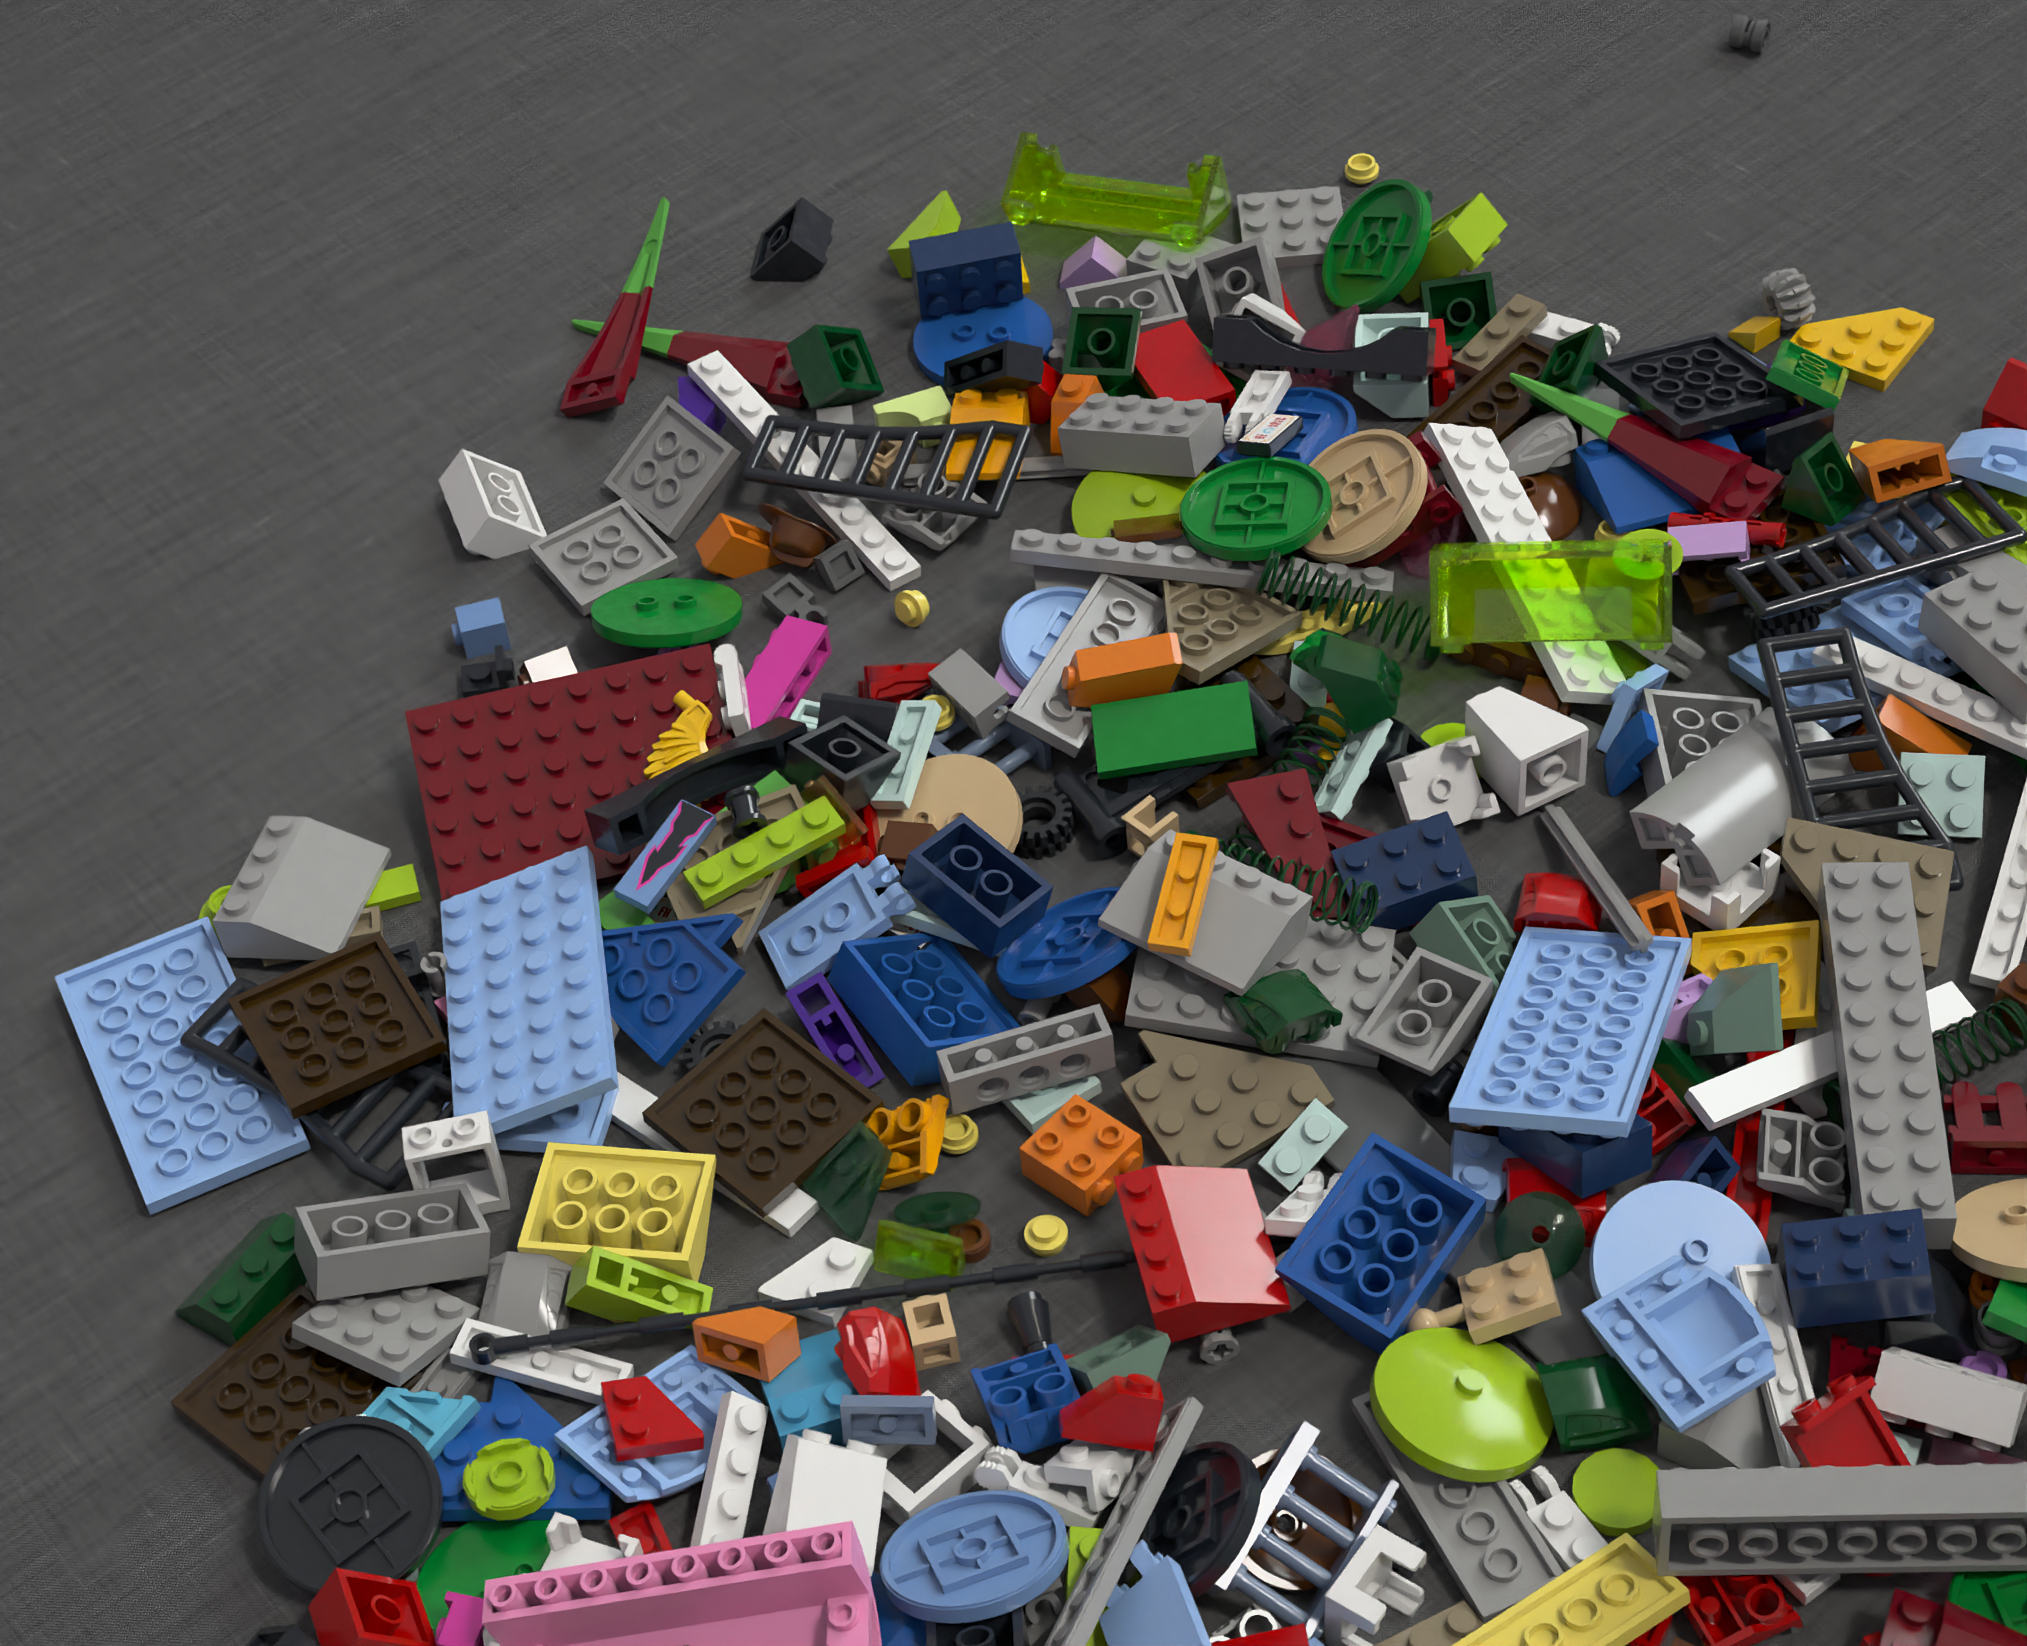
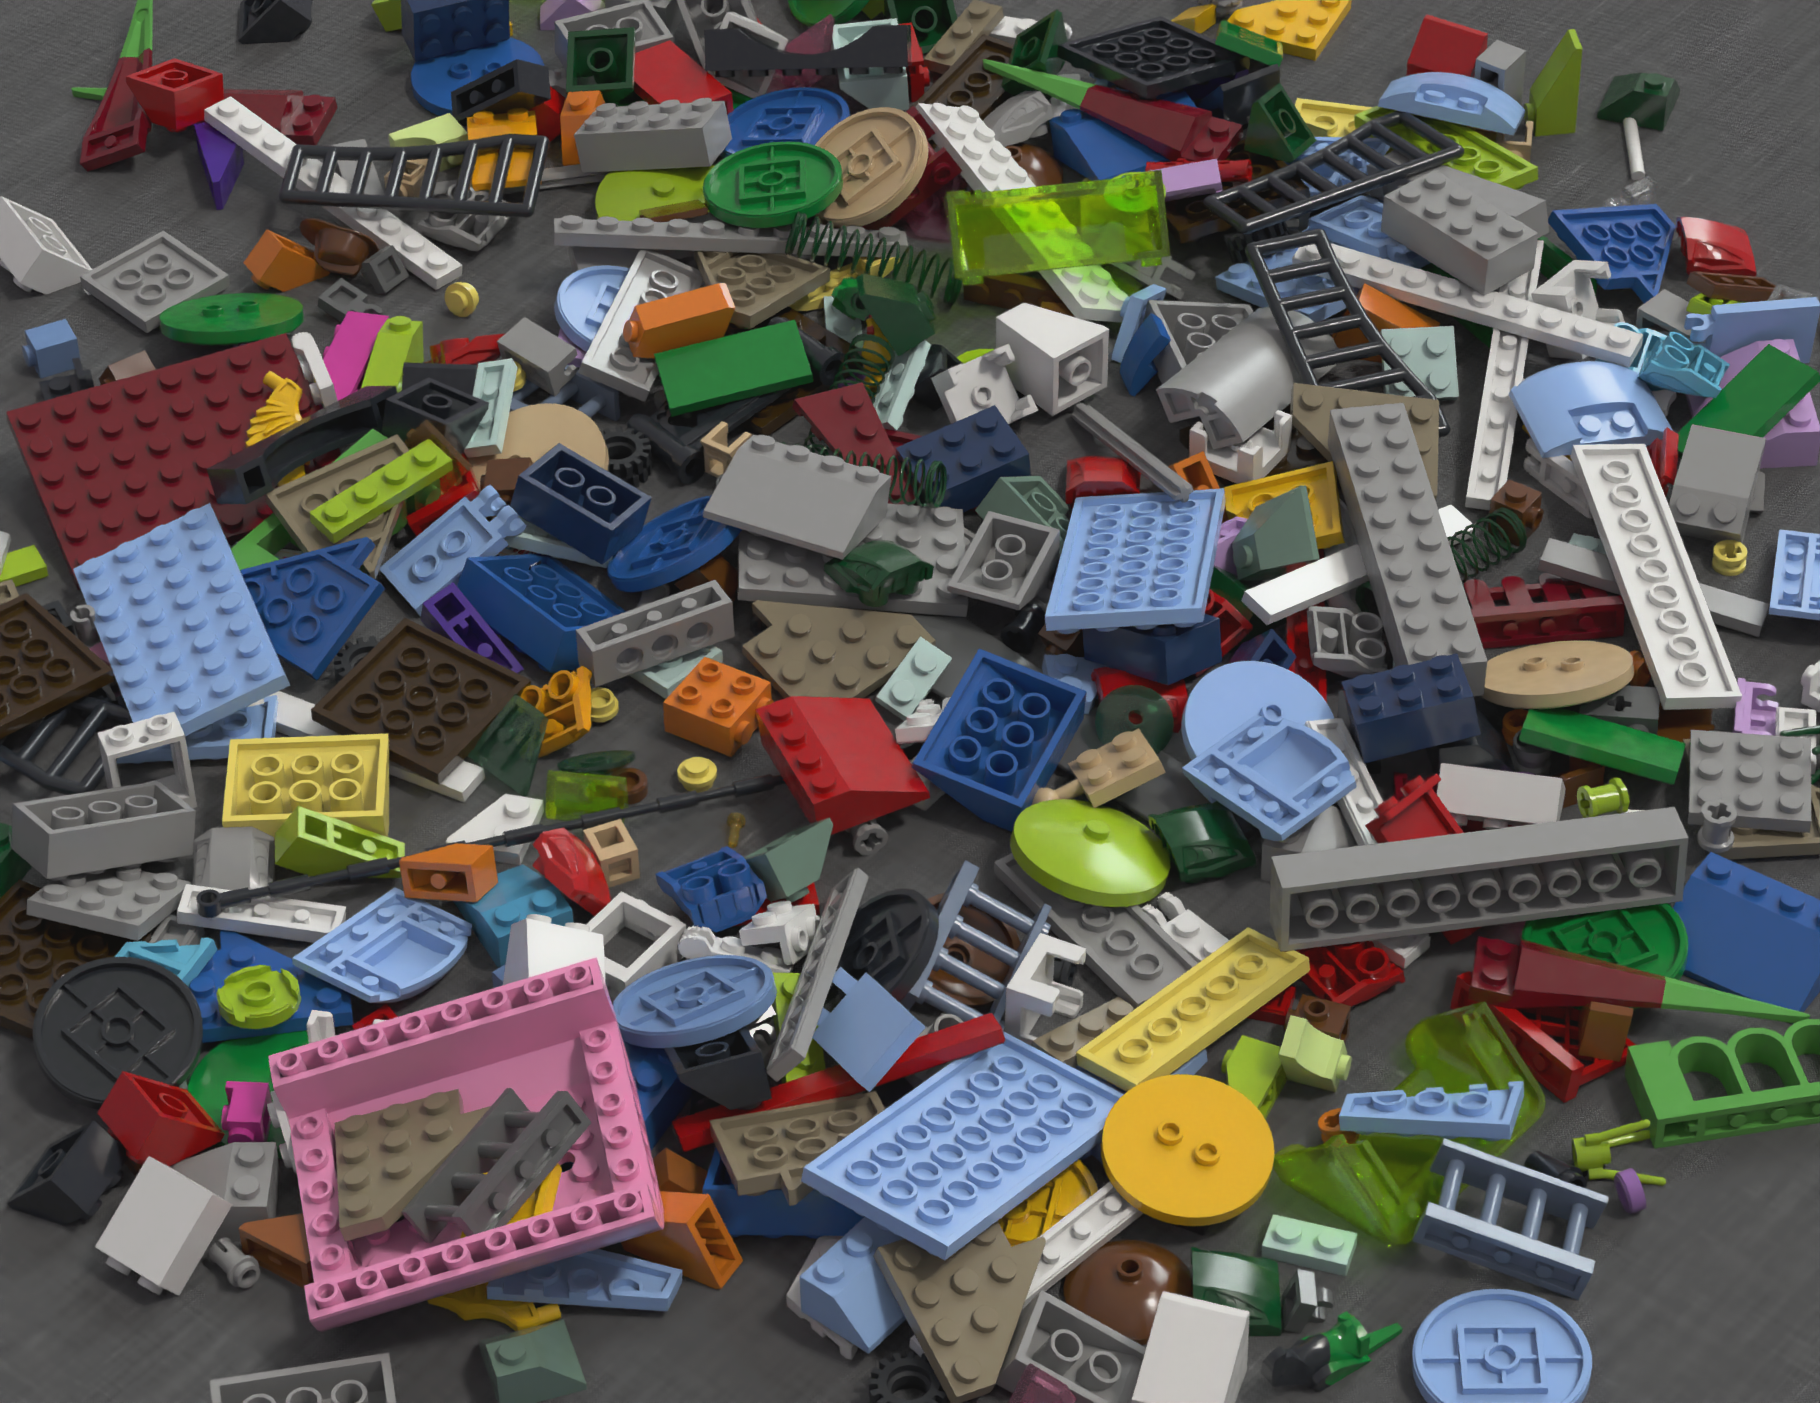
camera: 15 degrees left, 5 degrees down
(646, 1421) = (373, 941): red wing -> none
(664, 341) = (176, 93): none -> red slope
(665, 856) = (289, 502): tile -> none
(671, 468) = (207, 199): light grey plate -> none
(730, 1470) = (457, 955): white plate -> none
(745, 811) = (356, 454): black bush -> none
(828, 667) = (395, 343): none -> lime slope
(834, 366) = (343, 105): dark green slope -> none
(889, 1419) = (599, 908): sand blue plate -> none
(1030, 1321) = (697, 834): black cone -> none
(1077, 1304) = (735, 822): none -> clear yellow piece
(1116, 1413) = (798, 881): red slope -> none
(1183, 894) = (778, 479): light orange plate -> none
(1256, 401) = (754, 104): white hinge -> none
(1269, 435) = (773, 125): tile -> none
(1616, 1491) = (1233, 904): lime tile -> none
(1898, 467) = (1343, 108): orange slope -> none

